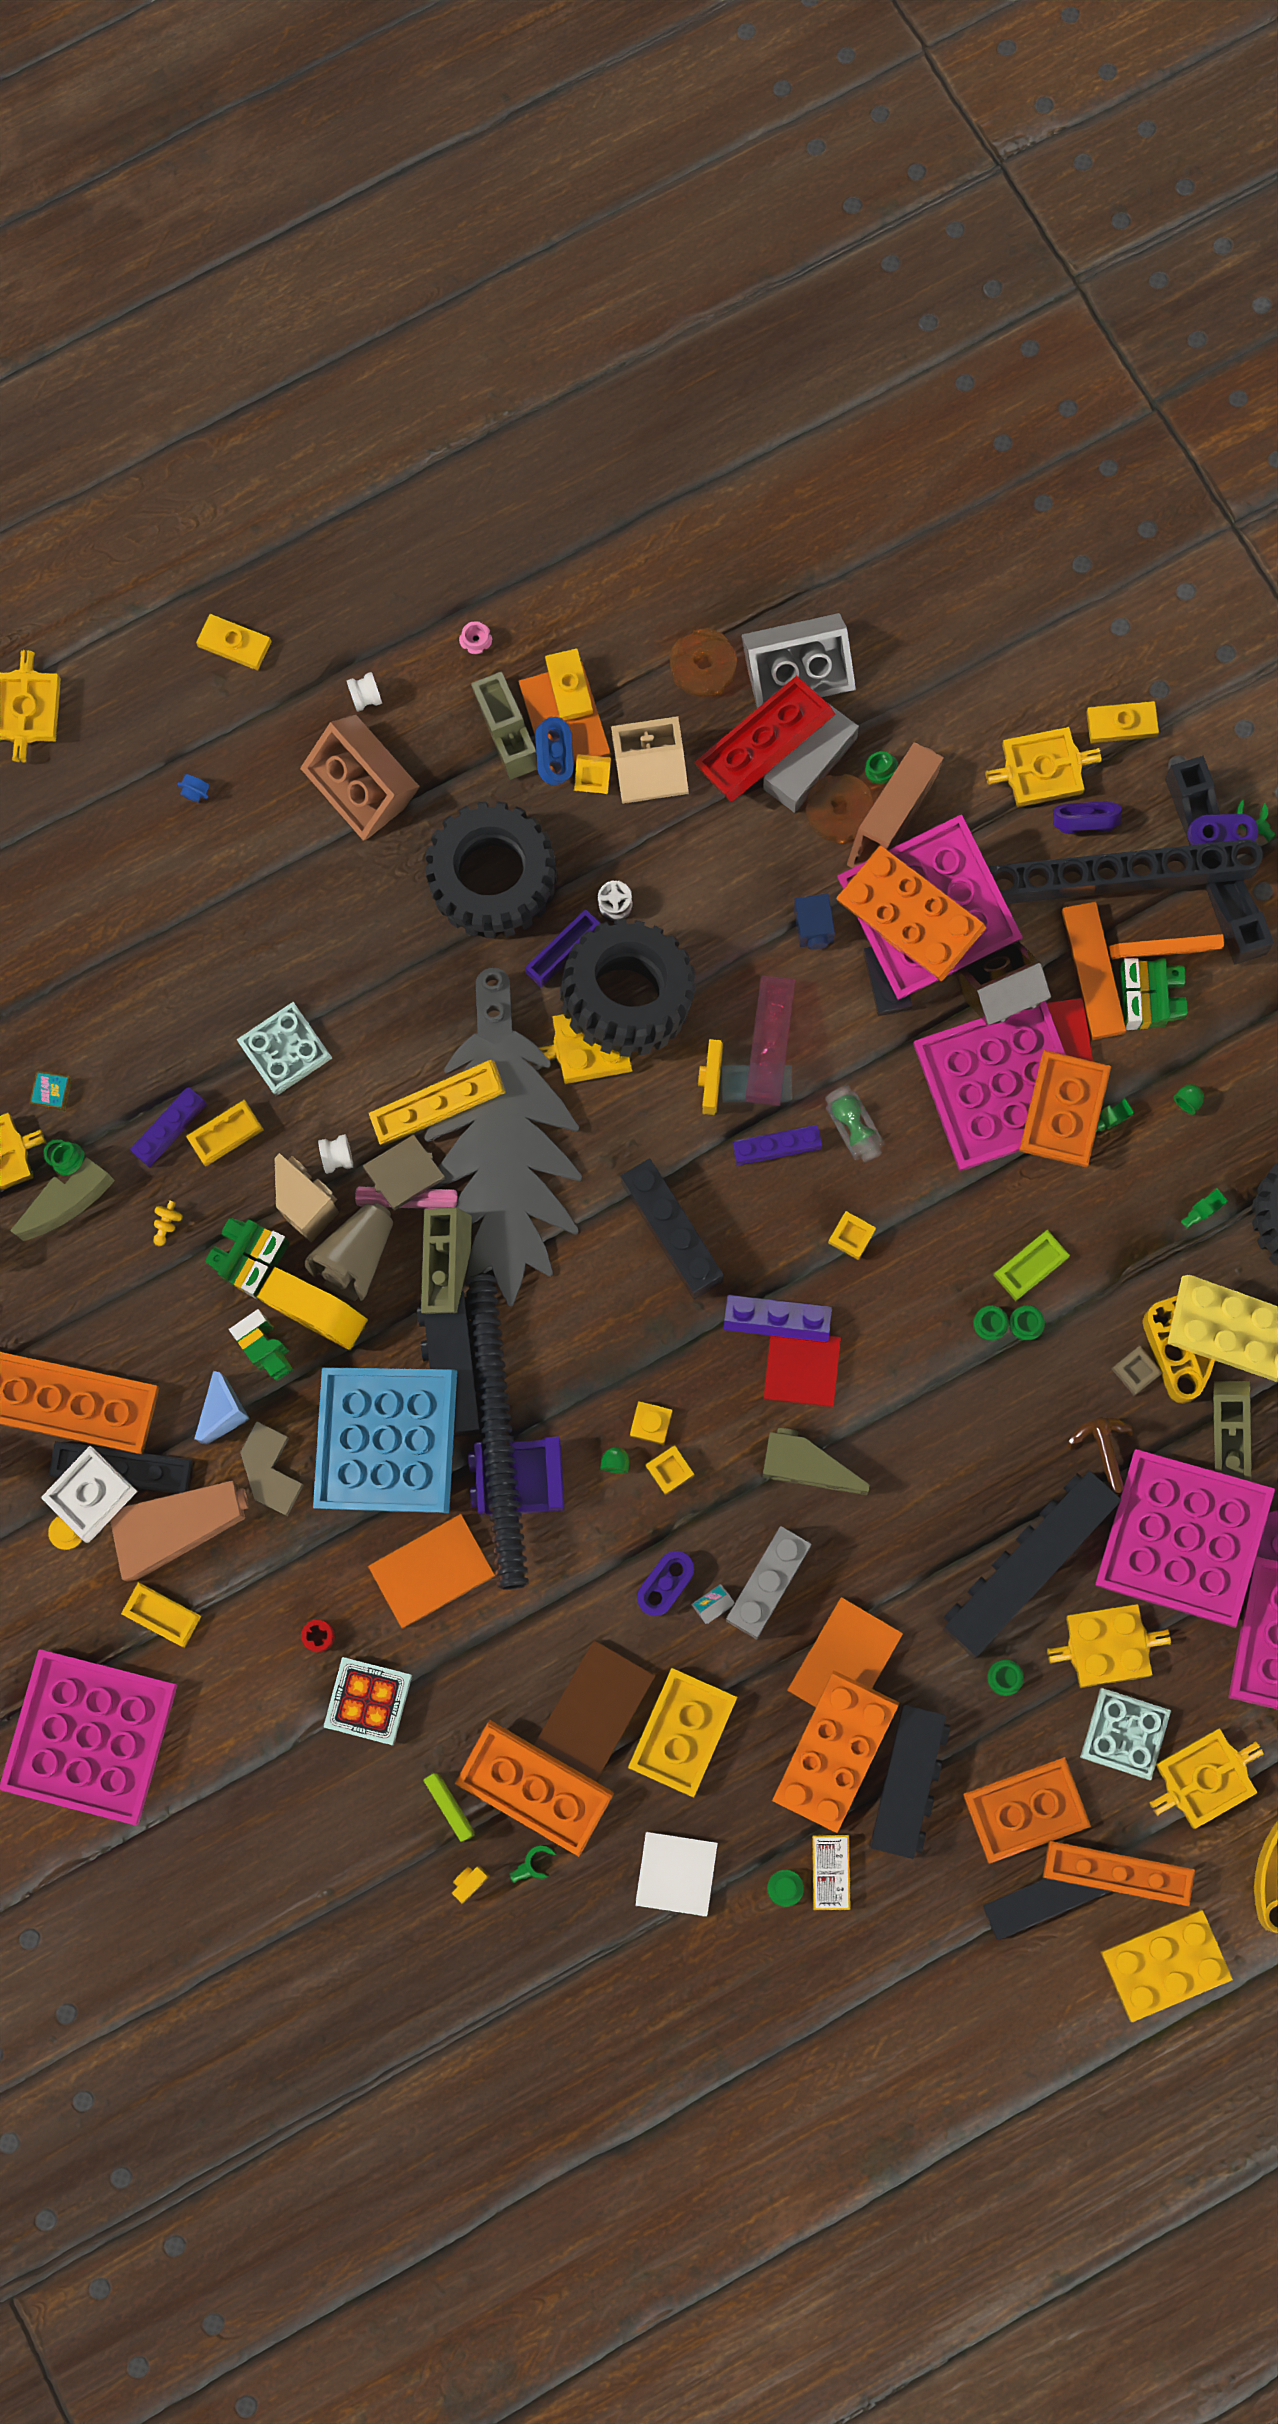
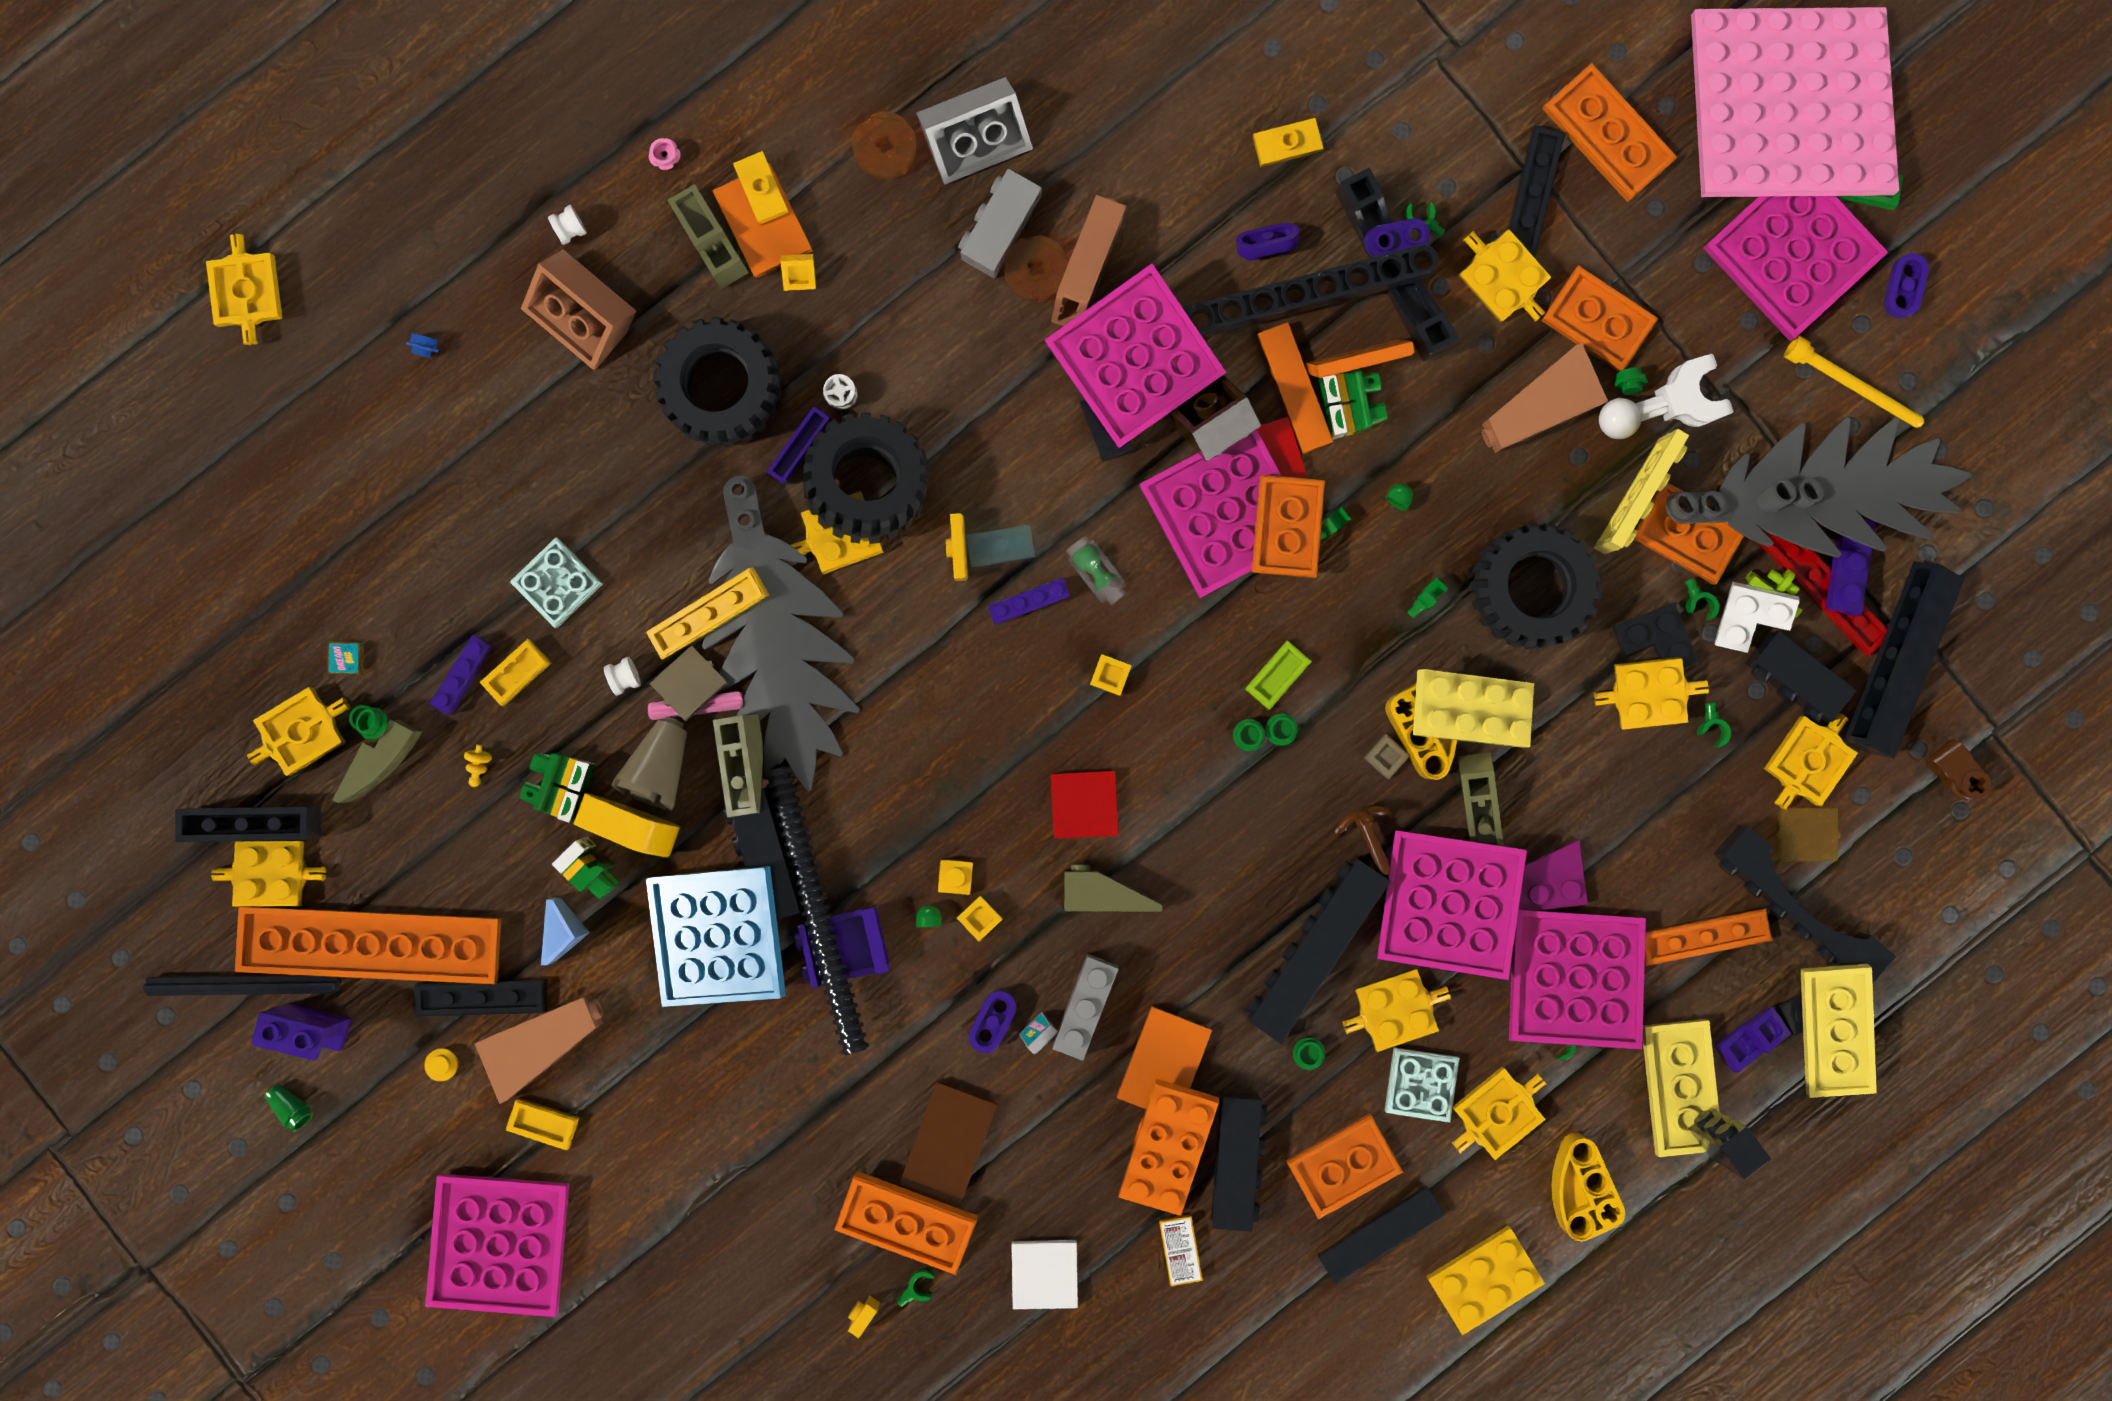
camera: 20 degrees left, 10 degrees up
(88, 1494) = (454, 1031): white tile -> none
(233, 642) = (433, 193): yellow plate -> none
(259, 1458) = (616, 990): dark tan tile -> none
(302, 1203) = (595, 728): tan slope -> none
(312, 1645) = (684, 1129): red bush -> none
(367, 1701) = (743, 1171): tile -> none
(431, 1571) = (780, 1044): orange tile -> none
(449, 1807) = (833, 1252): lime tile -> none
(554, 753) = (758, 258): blue plate -> none
(650, 759) = (849, 250): tan slope -> none
(672, 1228) = (944, 696): black brick -> none
(682, 1732) = (1029, 1151): yellow plate -> none
(764, 738) = (954, 213): red plate -> none
(770, 1040) = (1007, 505): clear pink plate -> none
(777, 1318) = (1055, 763): dark purple plate -> none
(785, 1888) = (1142, 1271): green plate -> none
(814, 921) = (1029, 383): dark blue brick -> none
(881, 767) = (1069, 223): green plate -> none
(911, 913) = (1119, 368): orange plate -> none
(1043, 767) = (1220, 198): yellow plate -> none
(1119, 1873) = (1433, 1210): orange tile -> none

